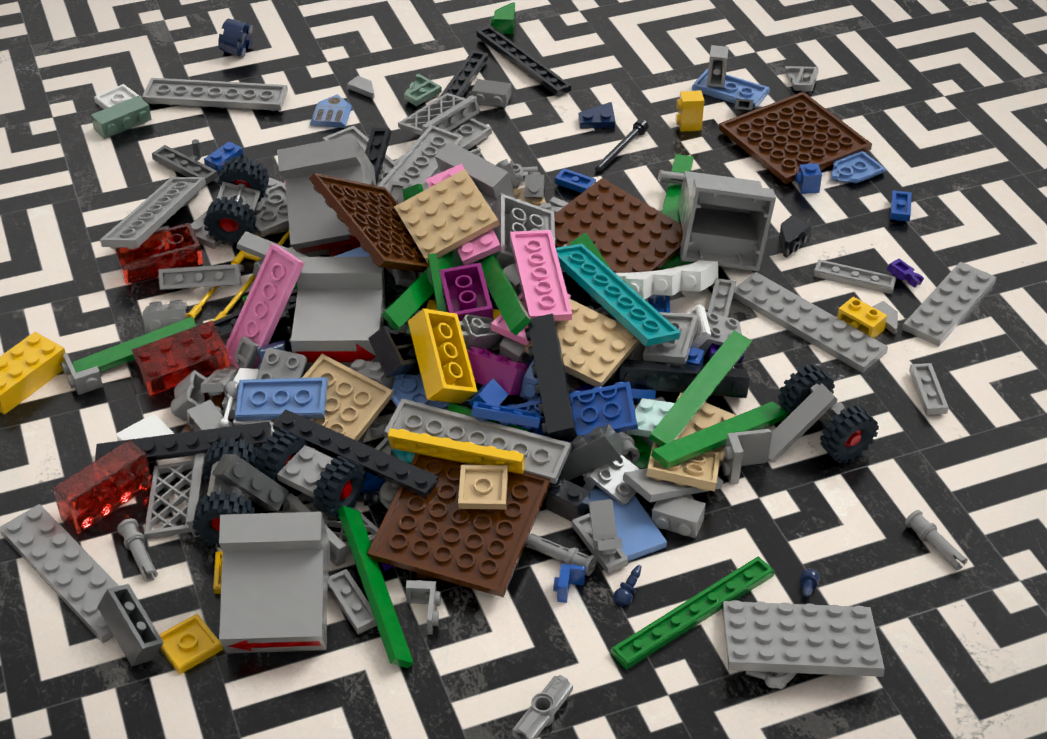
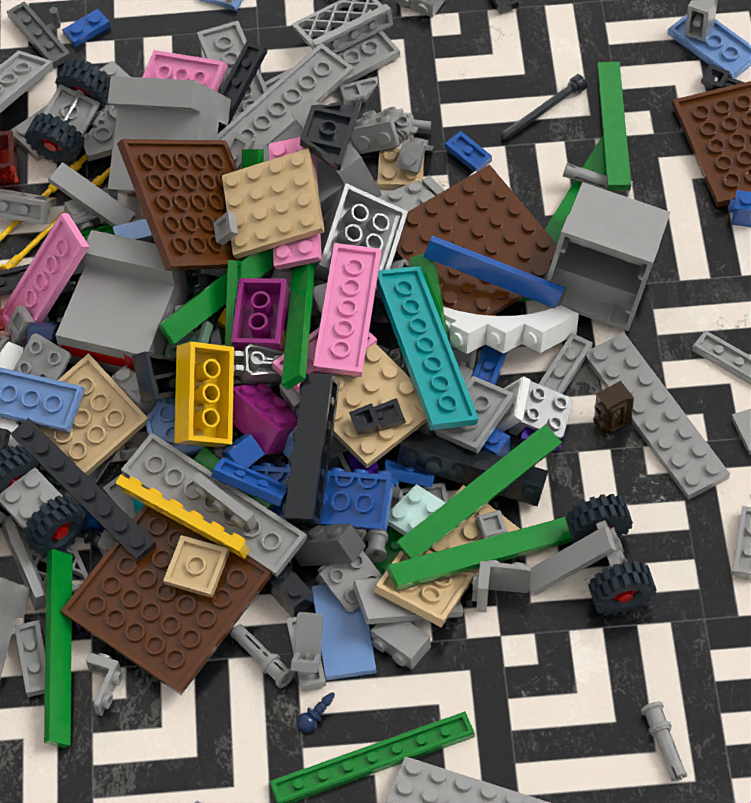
camera: 20 degrees right, 15 degrees up
(413, 237) = (225, 228): none -> light grey plate
(477, 157) = (330, 131): none -> black wing
(490, 431) = (223, 502): none -> light grey plate
(568, 575) = (249, 692): blue bracket -> none
(597, 117) = (534, 56): dark blue wing -> none
(597, 346) = (377, 418): none -> black slope
(642, 238) = (493, 271): none -> blue tile
(682, 142) = (614, 126): none -> green tile
(690, 111) = (642, 76): yellow brick -> none
(717, 413) = (491, 524): none -> light grey tile
(775, 310) = (613, 408): none -> dark brown window
(793, 234) = (690, 288): black slope -> none
(809, 581) = (508, 752): dark blue bar -> none
(862, 317) = (717, 427): yellow brick -> none

